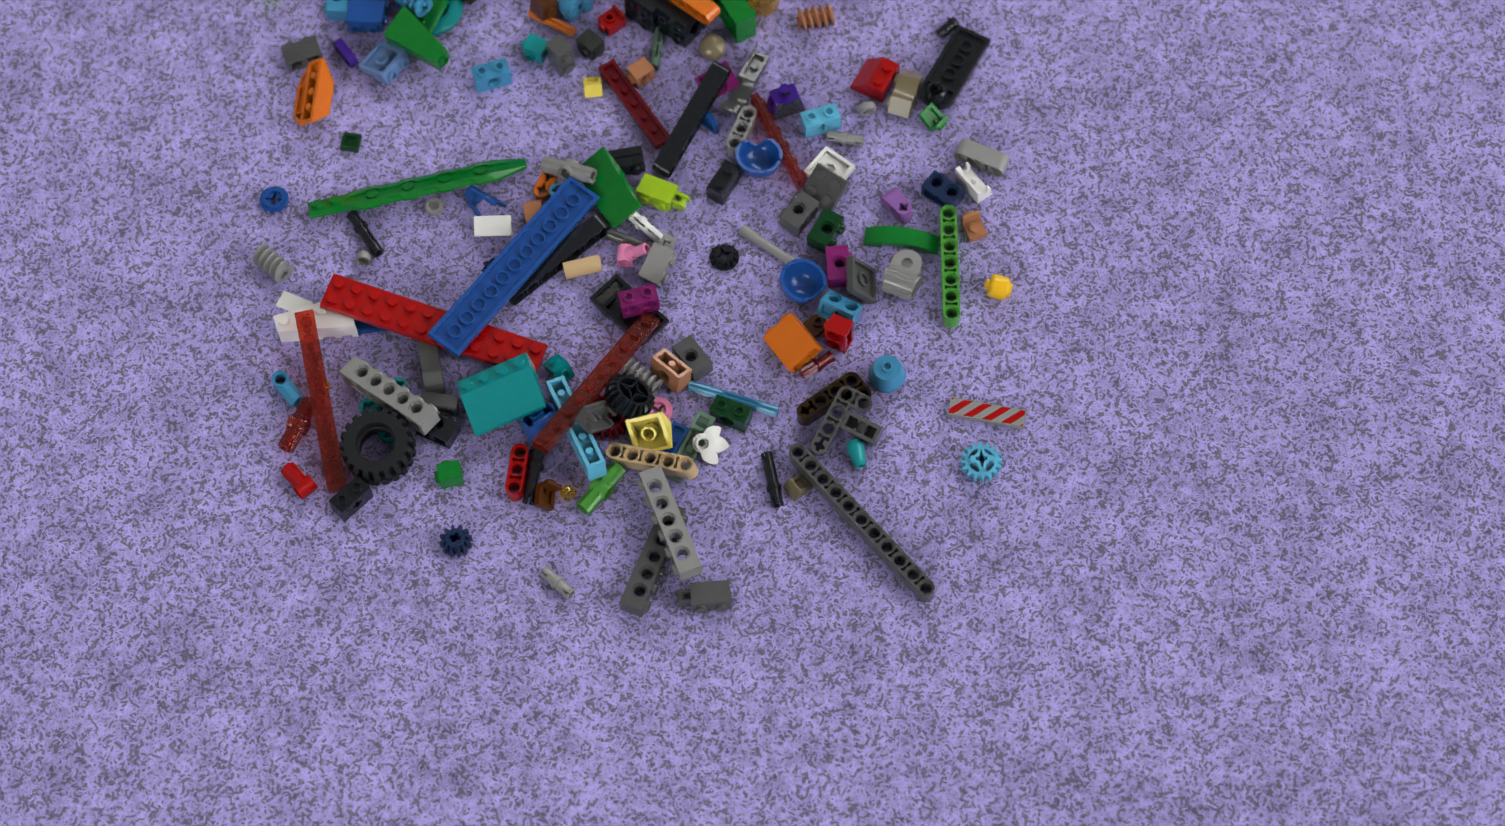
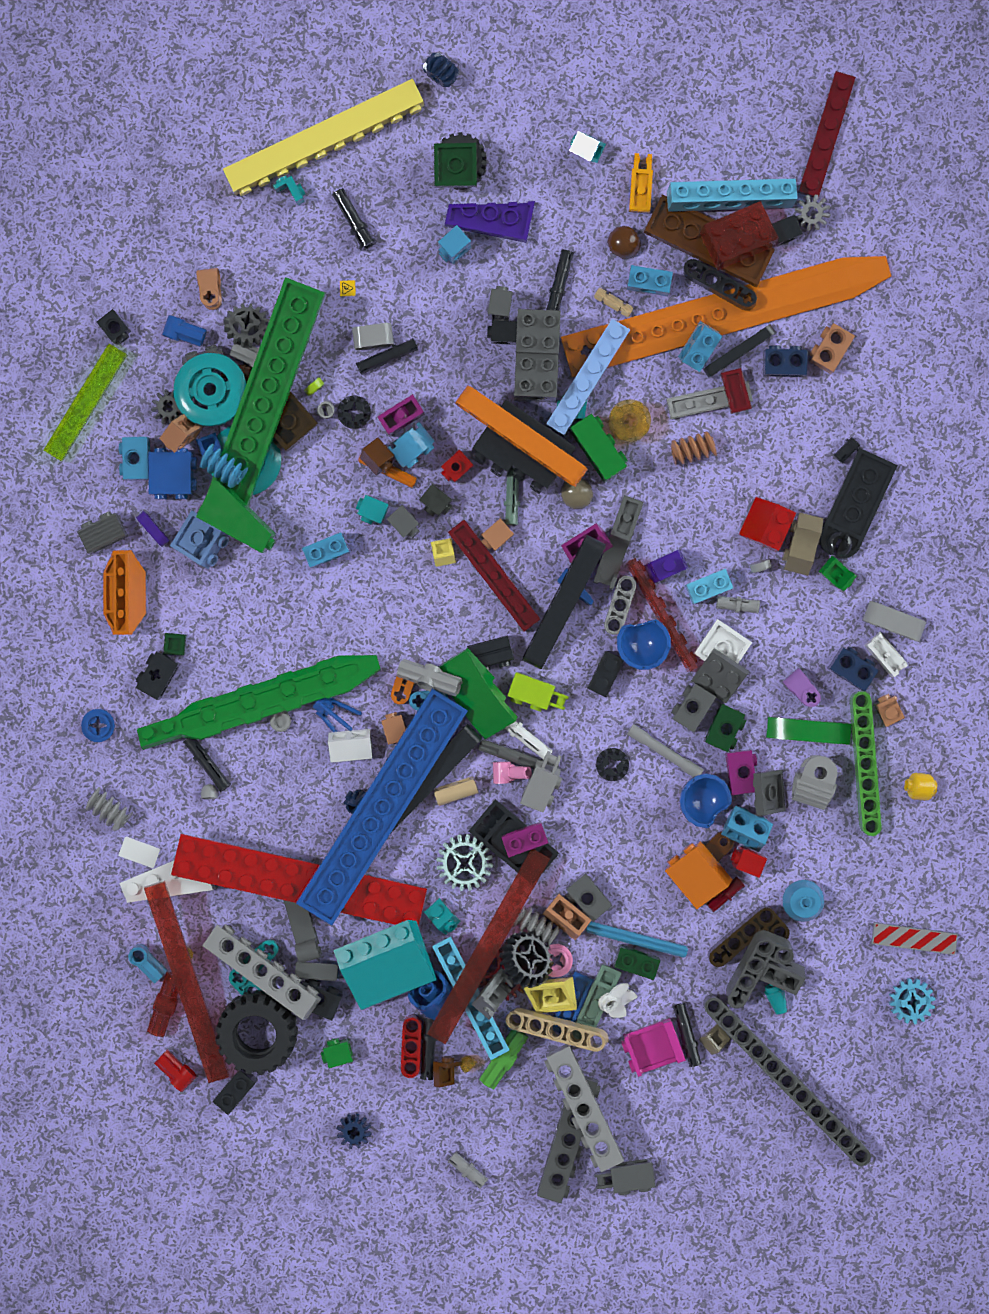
camera: 15 degrees left, 25 degrees up
(332, 162) = (167, 668): none -> black brick
(584, 333) = (477, 874): none -> light aqua gear
(740, 488) = (652, 1047): none -> dark pink panel

